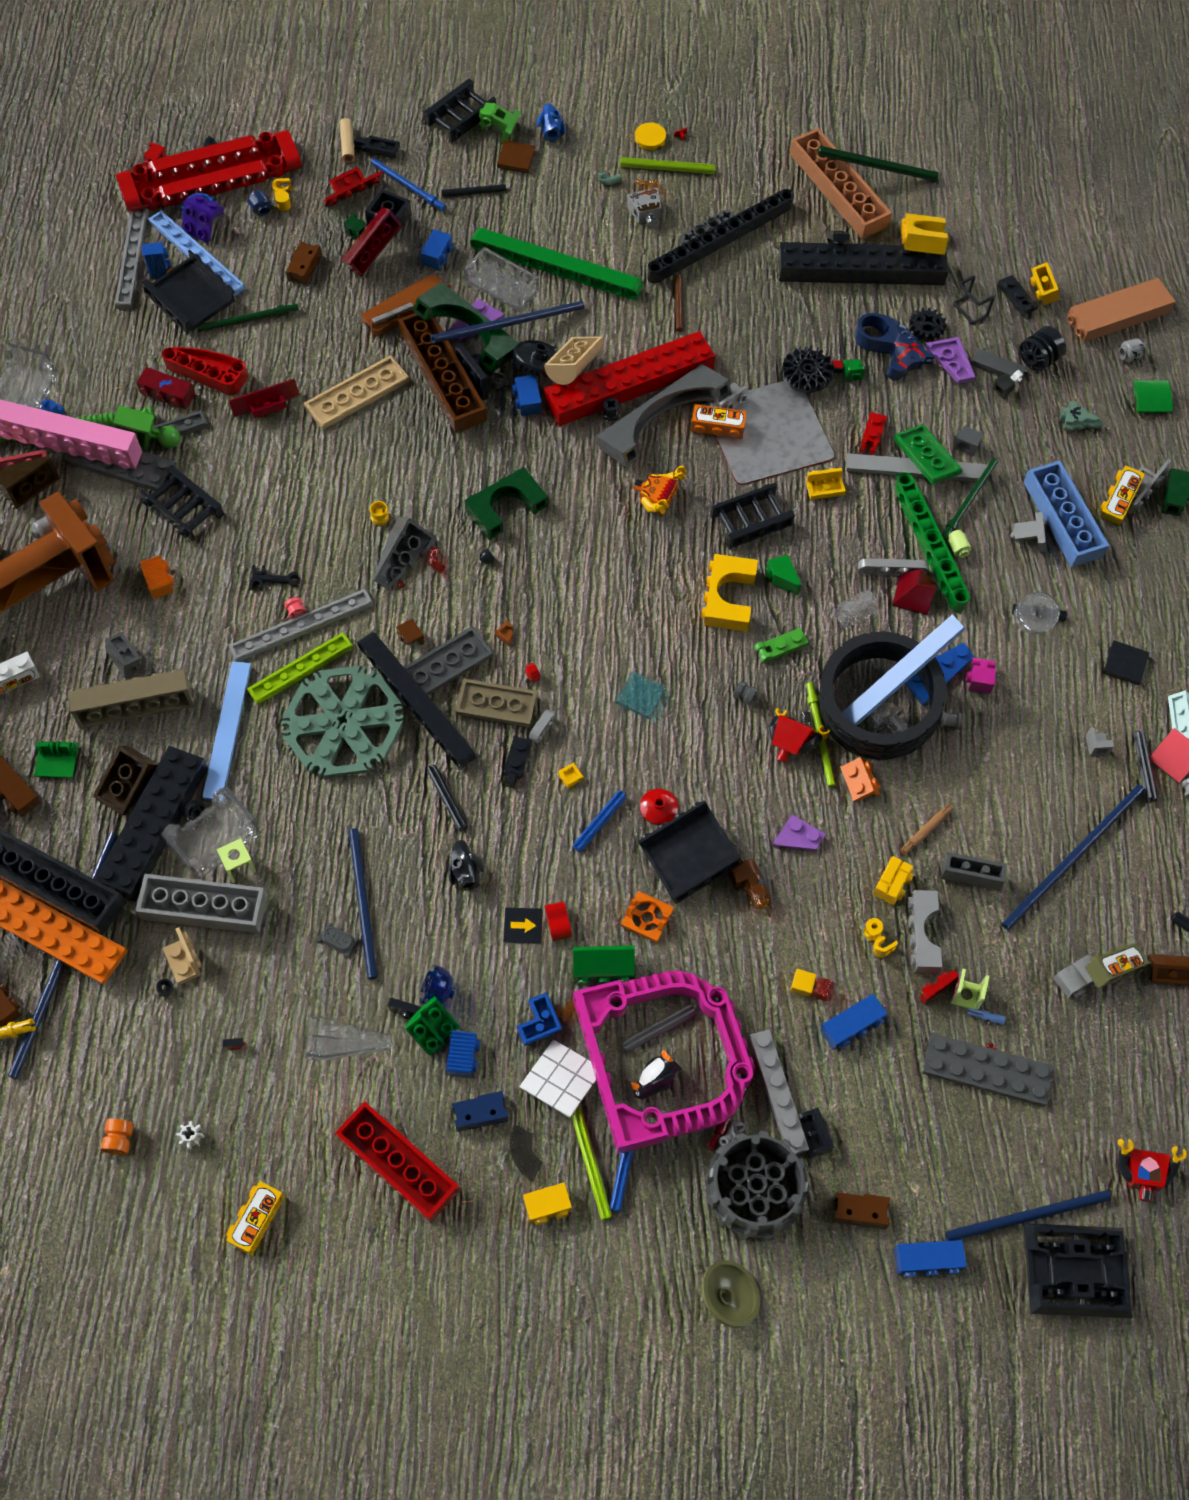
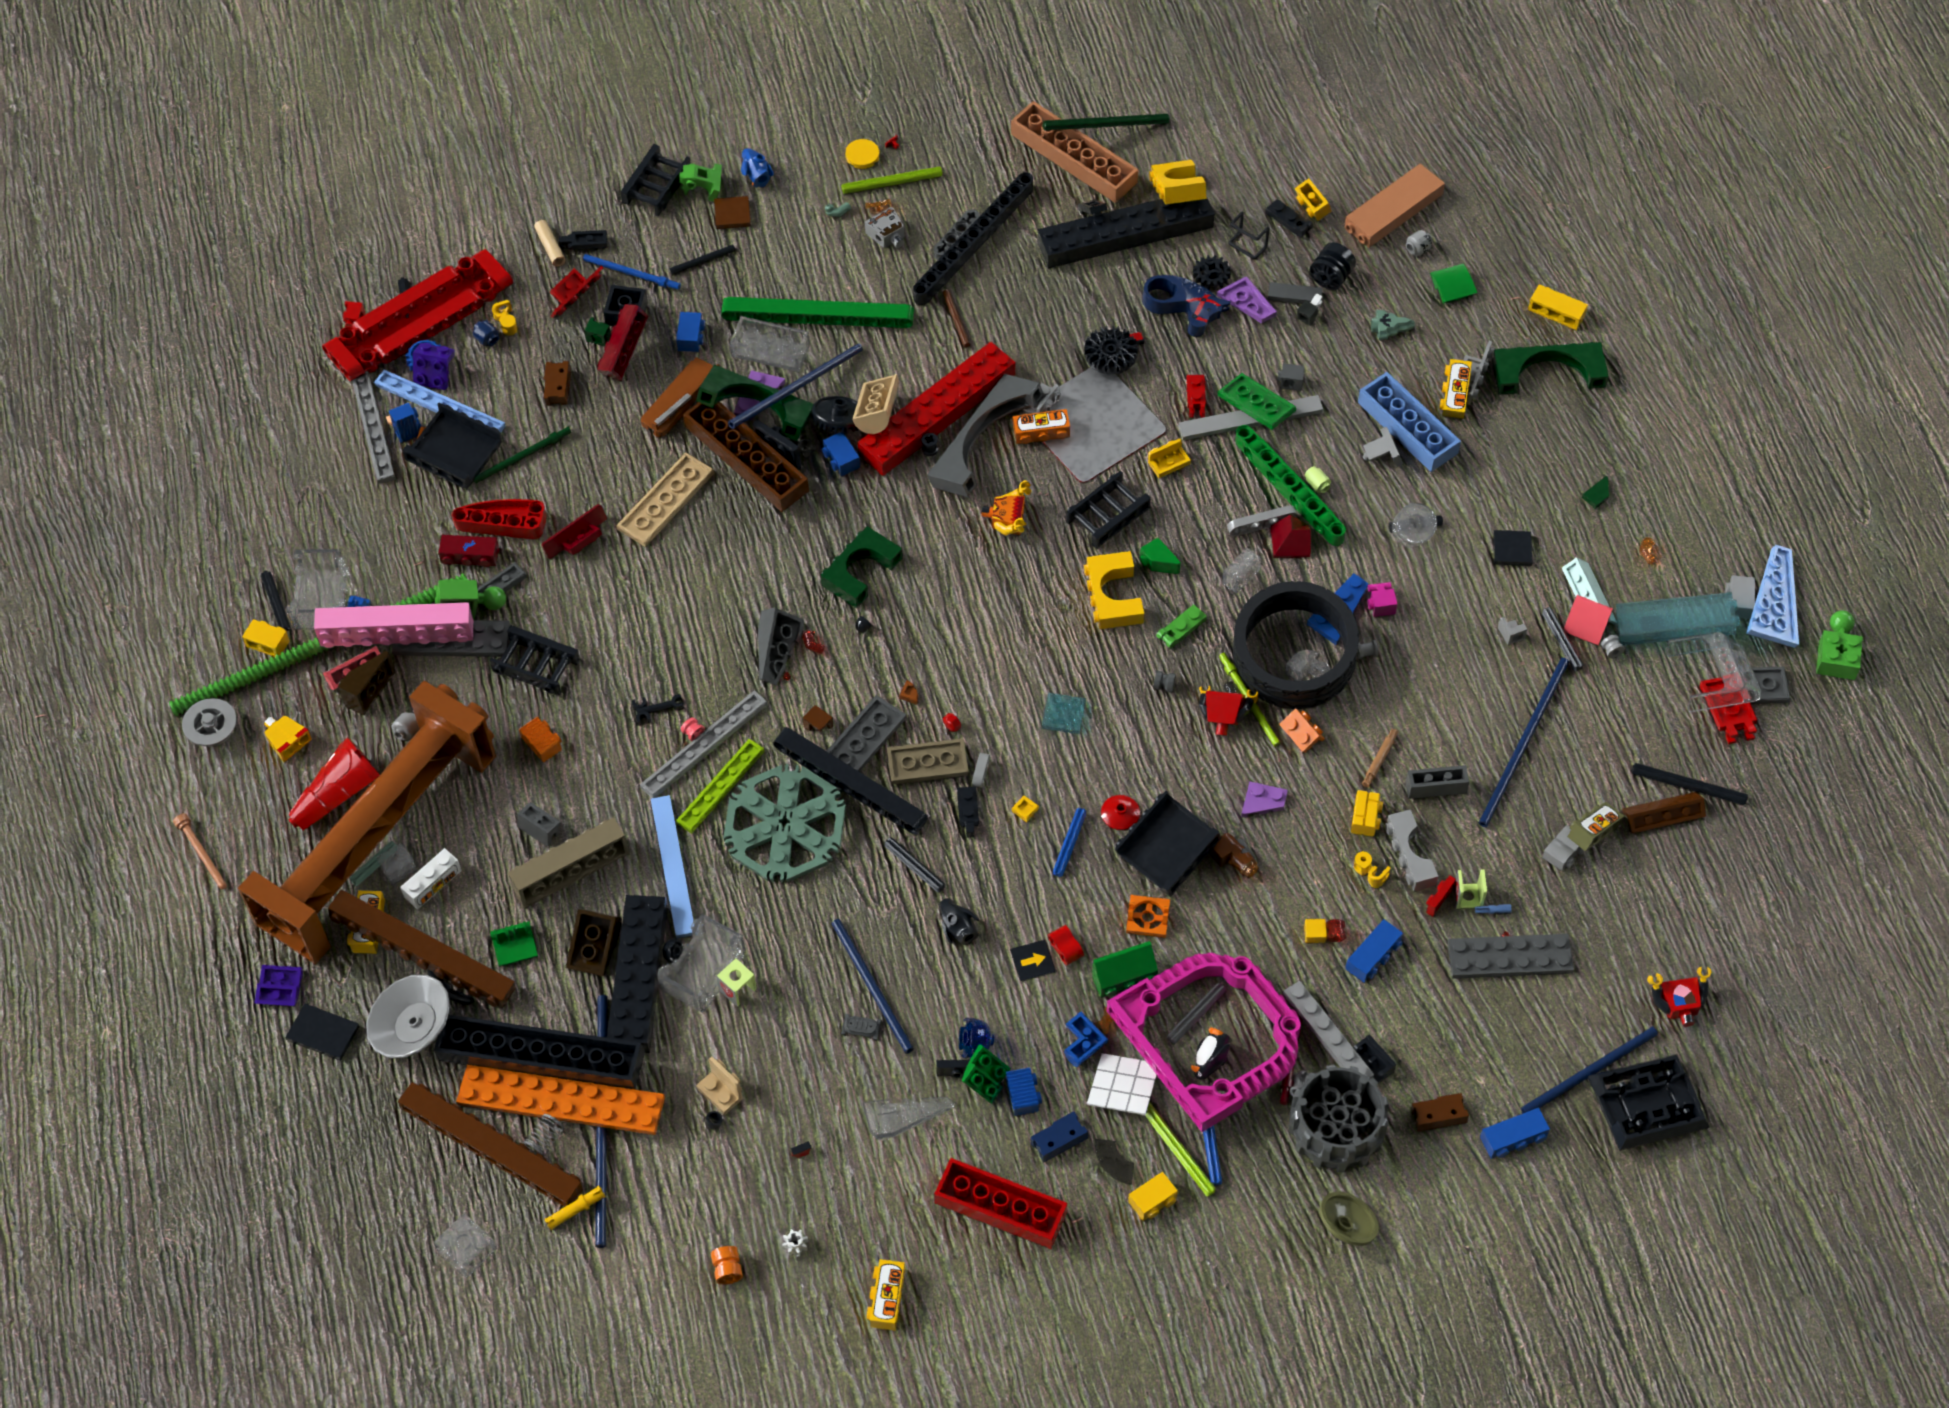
camera: 15 degrees left, 5 degrees down
(201, 903) = (718, 1032): light grey brick -> none
(379, 513) = (739, 613): yellow wheel -> none
(853, 370) = (1154, 337): green bracket -> none
(904, 670) = (1310, 613): light blue tile -> none
(953, 523) = (1304, 463): dark green bar -> none

